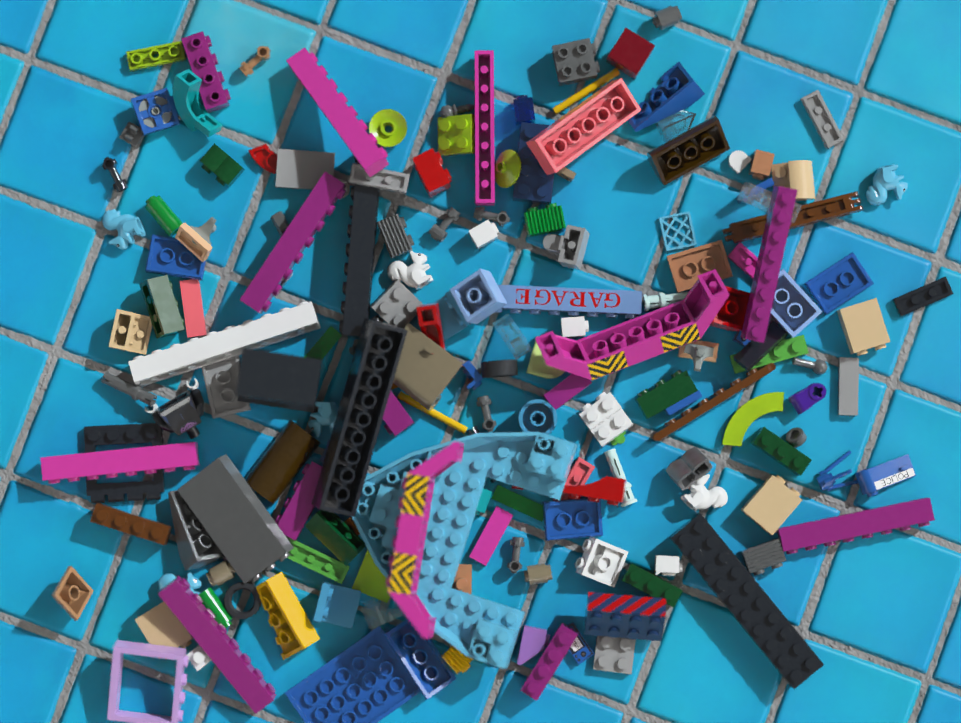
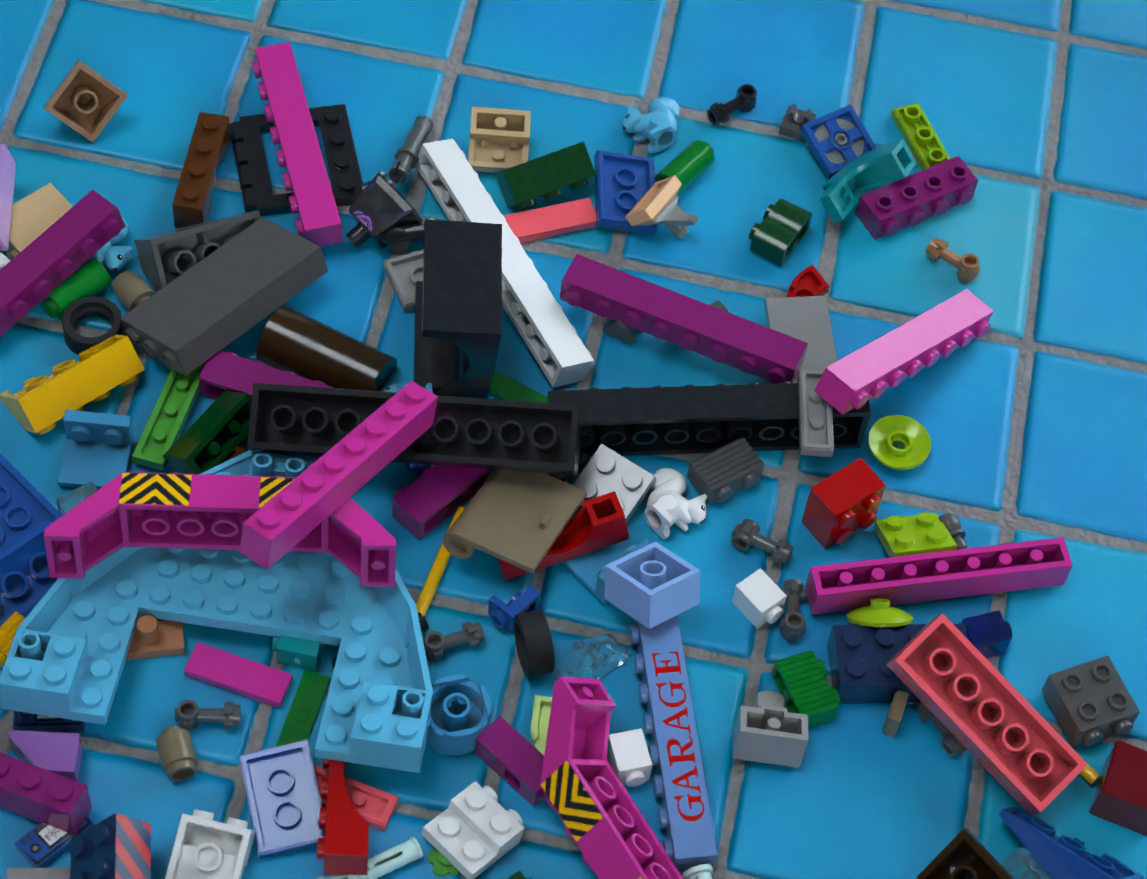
camera: 75 degrees right, 30 degrees down
(411, 467) = (337, 475): none -> dark pink brick

